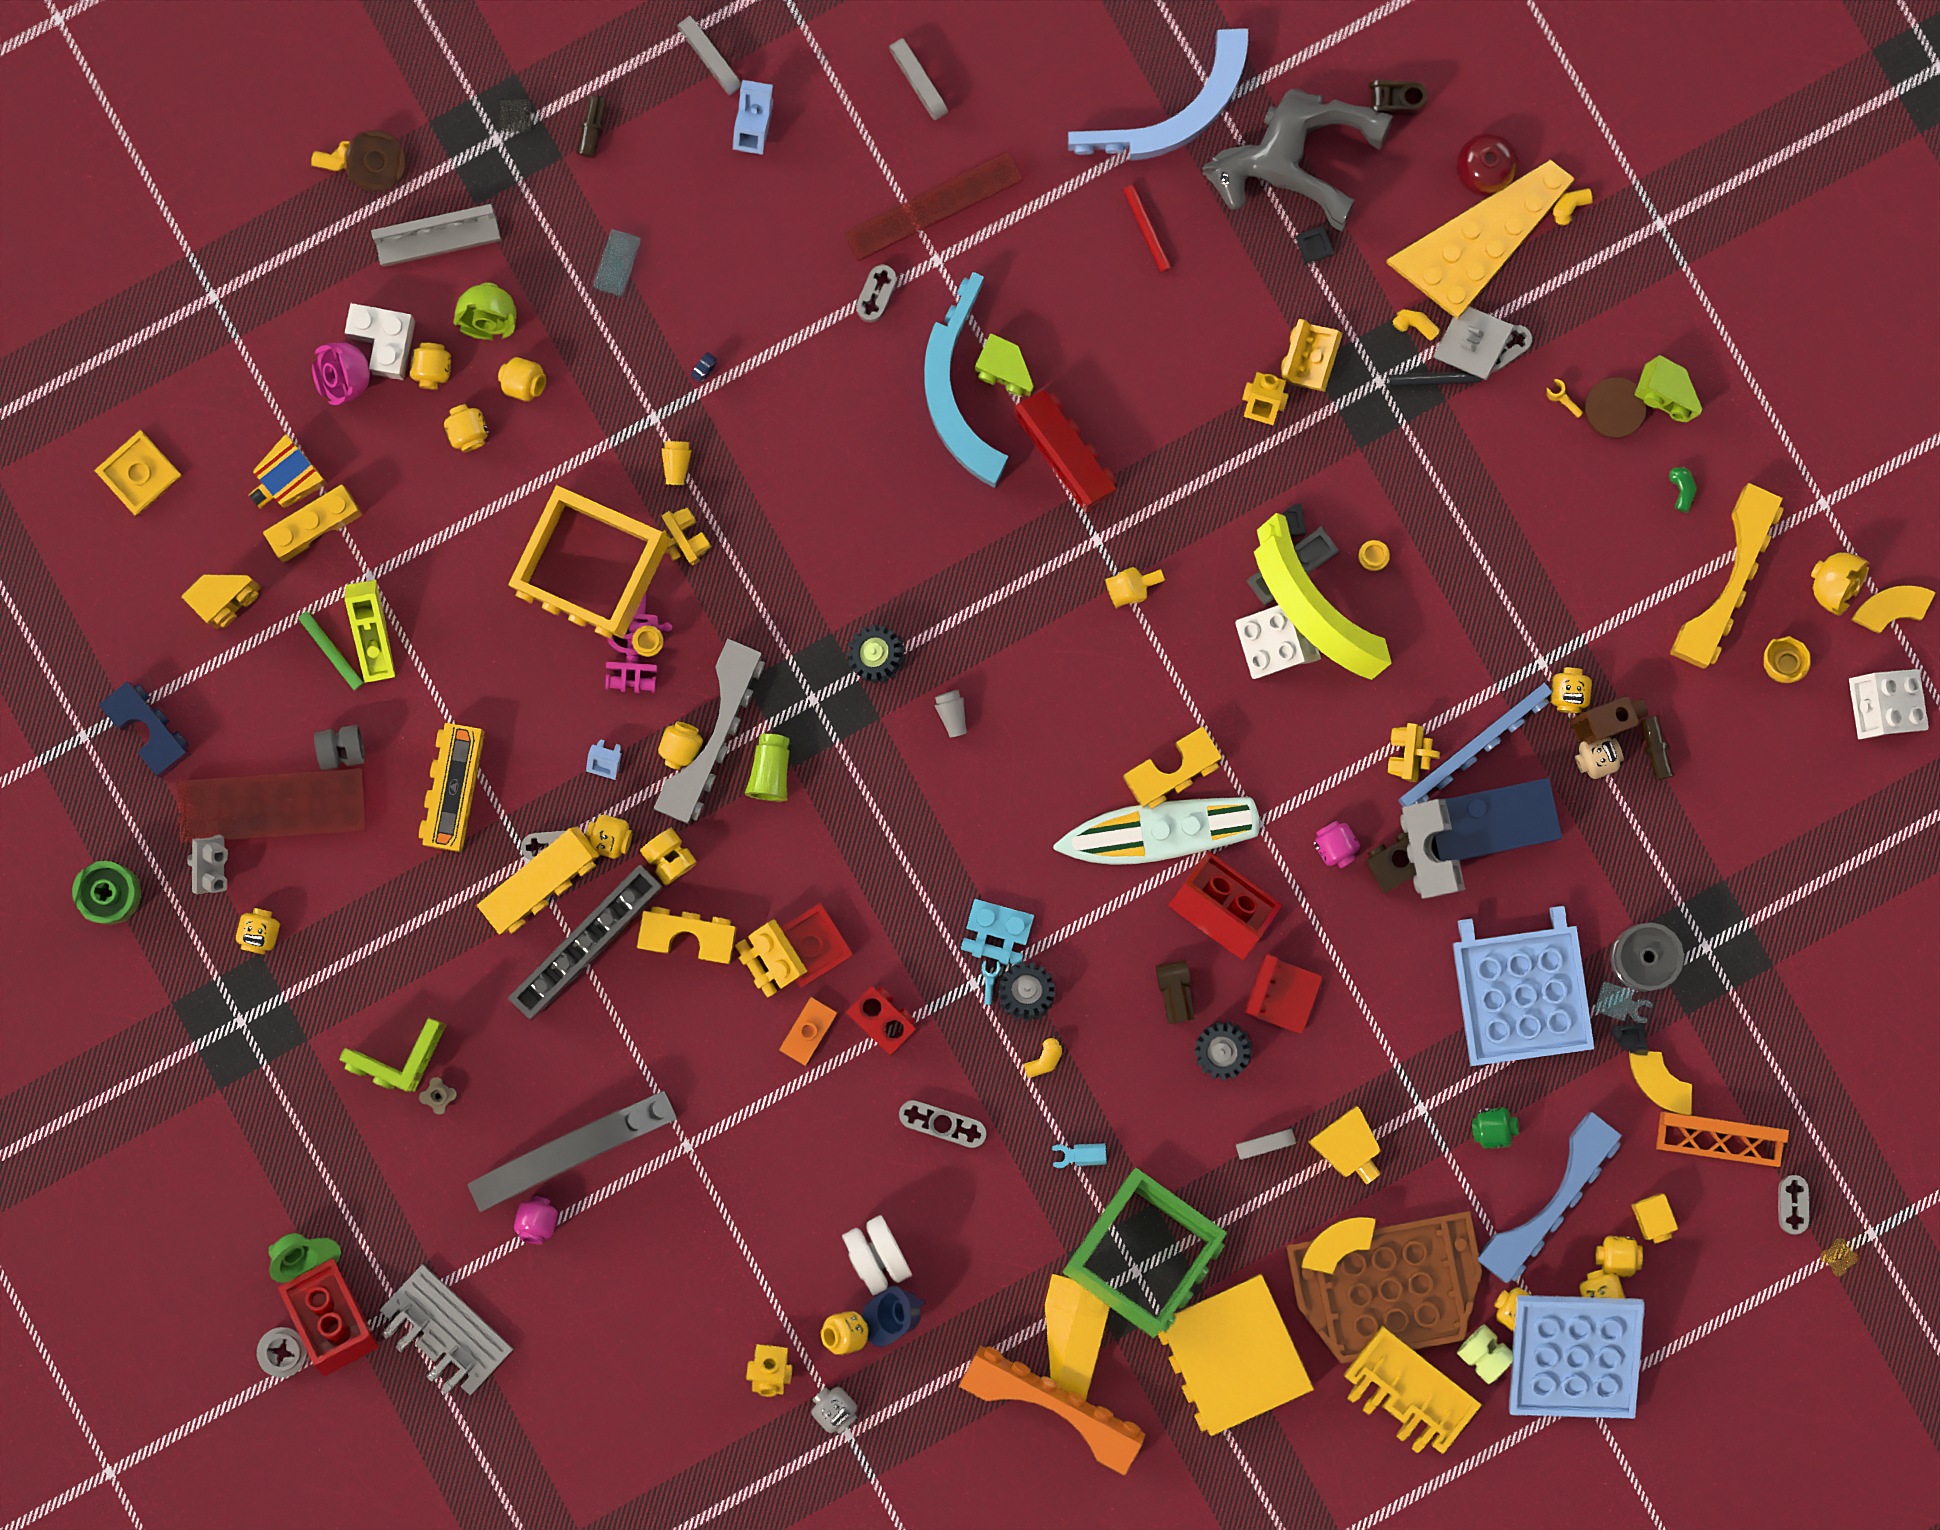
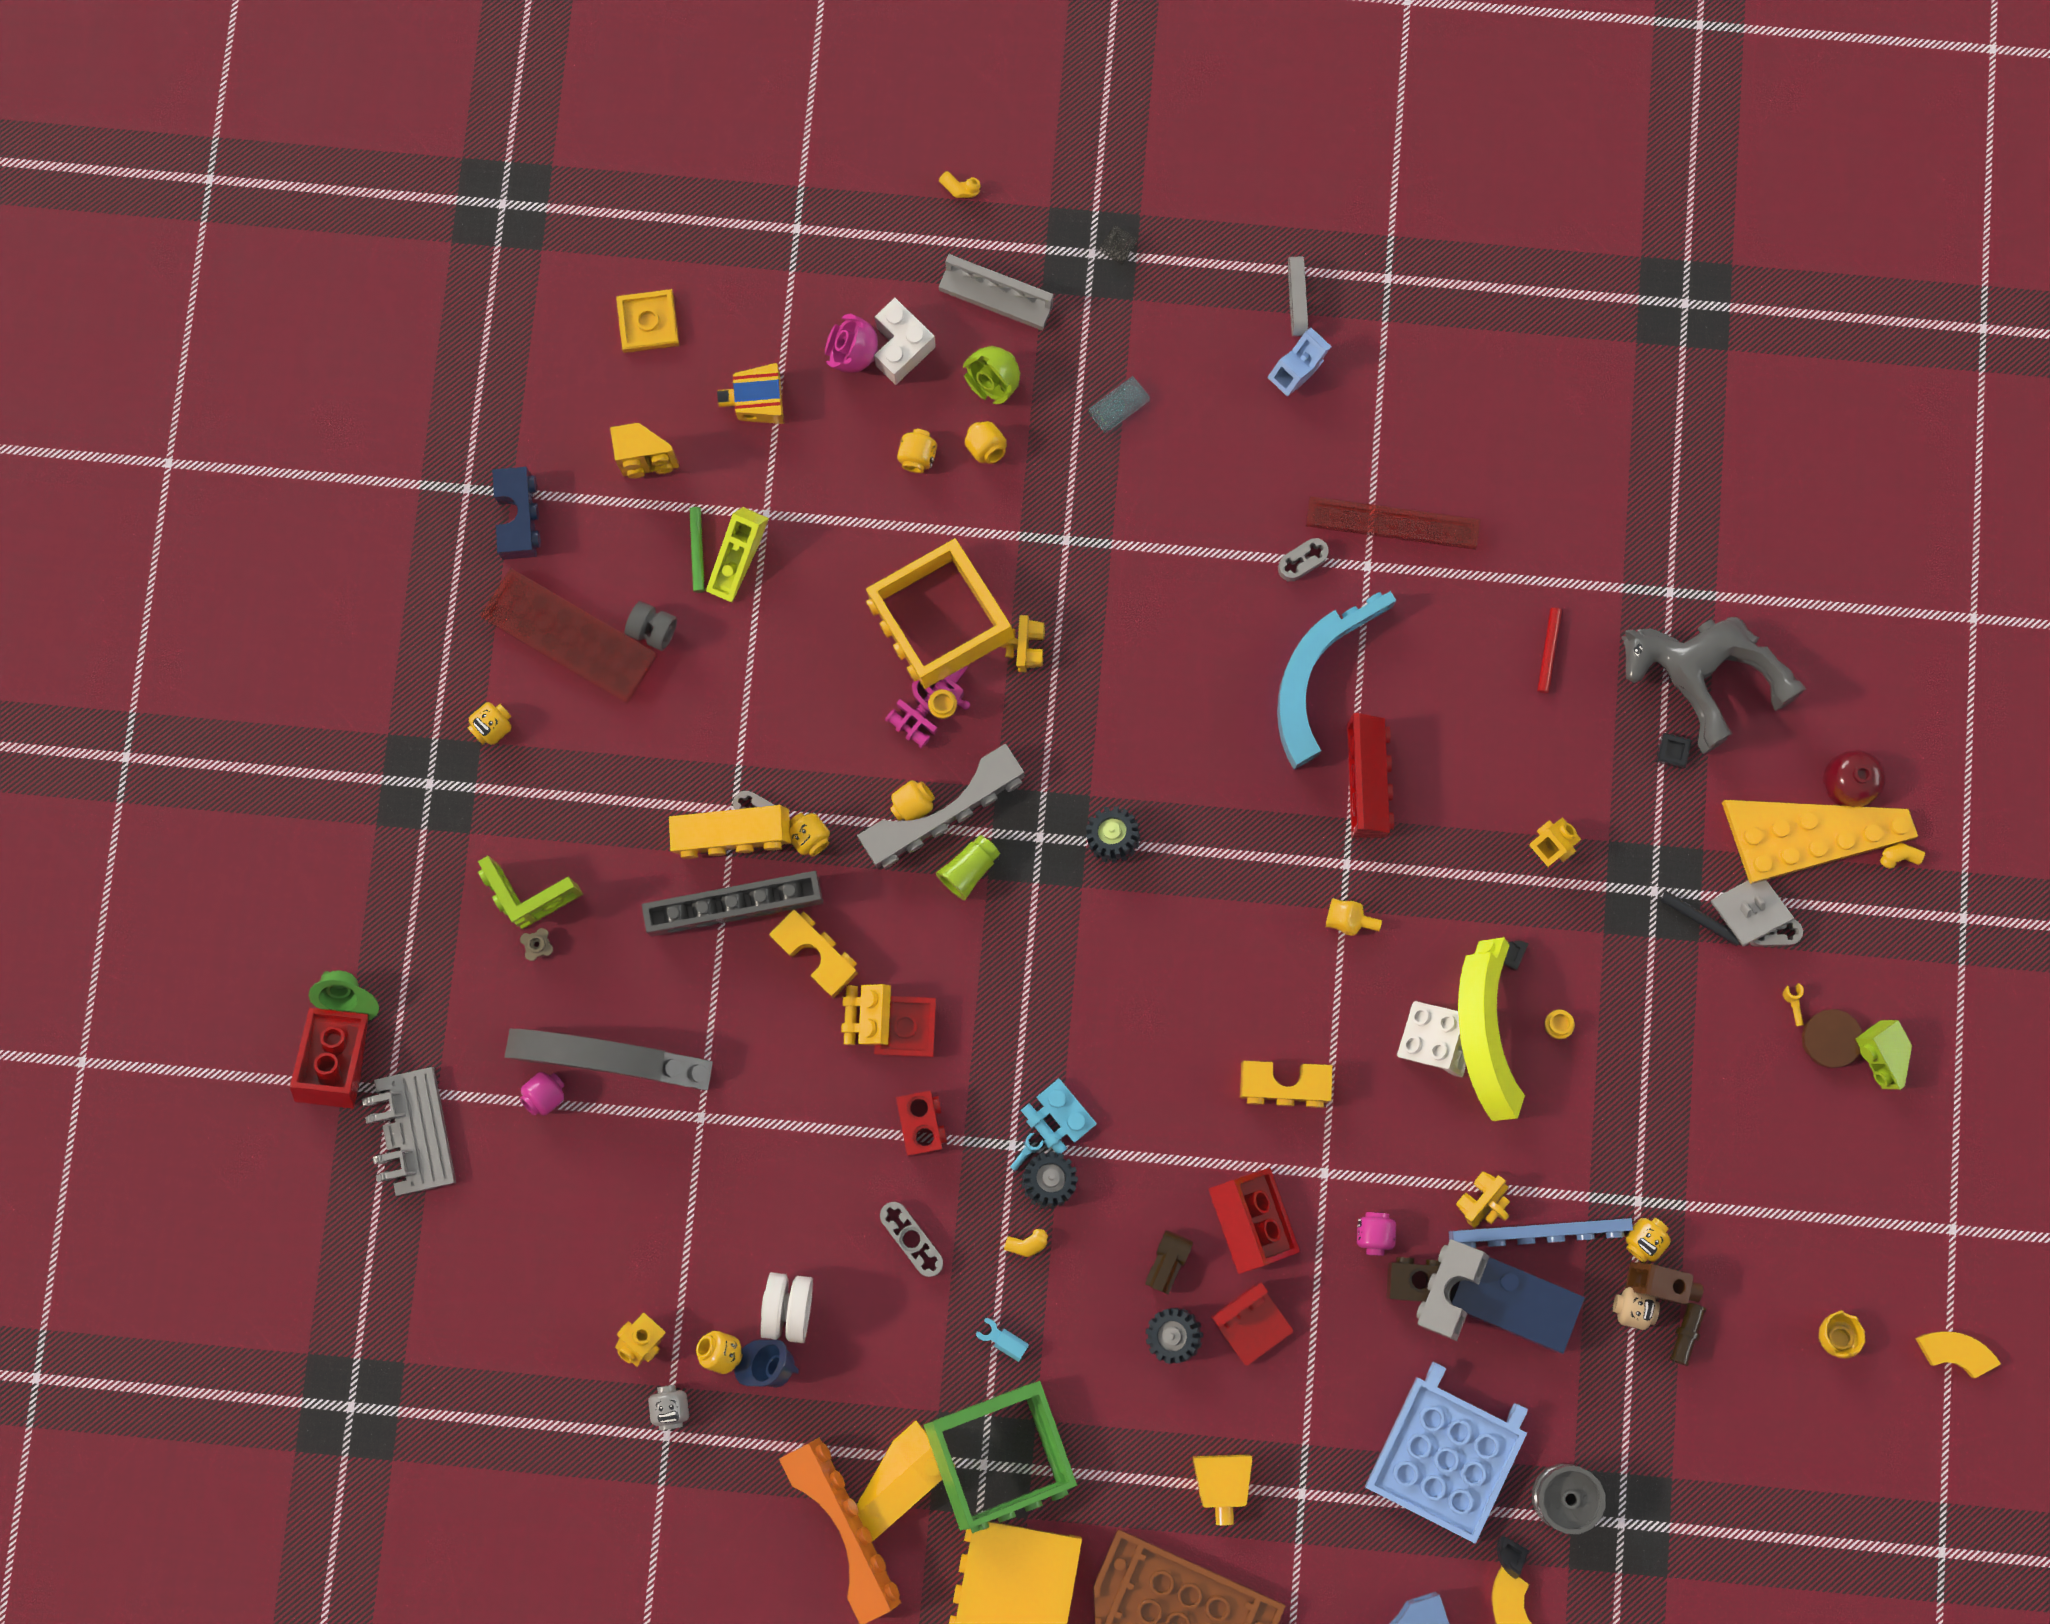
camera: 35 degrees right, 5 degrees down
(105, 875) = (406, 629): bright green brick -> none
(208, 865) = (488, 646): light grey hips -> none
(269, 1360) = (263, 1059): light grey gear -> none
(320, 516) = (732, 441): yellow arch -> none
(374, 160) = (988, 207): reddish brown tile -> none
(430, 365) = (923, 386): yellow head -> none
(452, 788) = (715, 714): brick -> none
(591, 127) = (1170, 290): dark brown axle -> none
(604, 761) = (844, 773): light blue tile -> none
(662, 847) = (843, 870): yellow wheel -> none
(676, 461) = (1060, 583): yellow cone -> none
(704, 367) = (1131, 526): dark blue tile -> none
(808, 1031) = (857, 1092): orange plate -> none
(918, 79) = (1447, 419): light grey beam -> none
(952, 713) = (1140, 921): light grey cone -> none
(1004, 363) = (1366, 678): lime slope -> none
(1162, 833) = (1243, 1127): light aqua piece -> none
(1189, 123) = (1633, 591): light blue arch -> none
(1265, 1144) = (1157, 1435): light grey beam -> none
(1310, 355) = (1613, 833): yellow bracket -> none
(1311, 553) = (1511, 988): dark grey tile -> none
(1337, 1241) = (1161, 1555): yellow tile -> none
(1395, 95) = (1815, 677): dark brown piece -> none
(1417, 320) = (1717, 862): yellow arm -> none
(1495, 1128) = (1351, 1552): green head -> none
(1617, 1002) = (1519, 1519): clear light blue plate -> none
(1687, 487) = (1850, 1140): green arm -> none
(1752, 519) = (1886, 1203): yellow arch -> none
(1838, 580) = (1927, 1299): yellow cylinder -> none
(1888, 703) = (1902, 1427): white bracket -> none

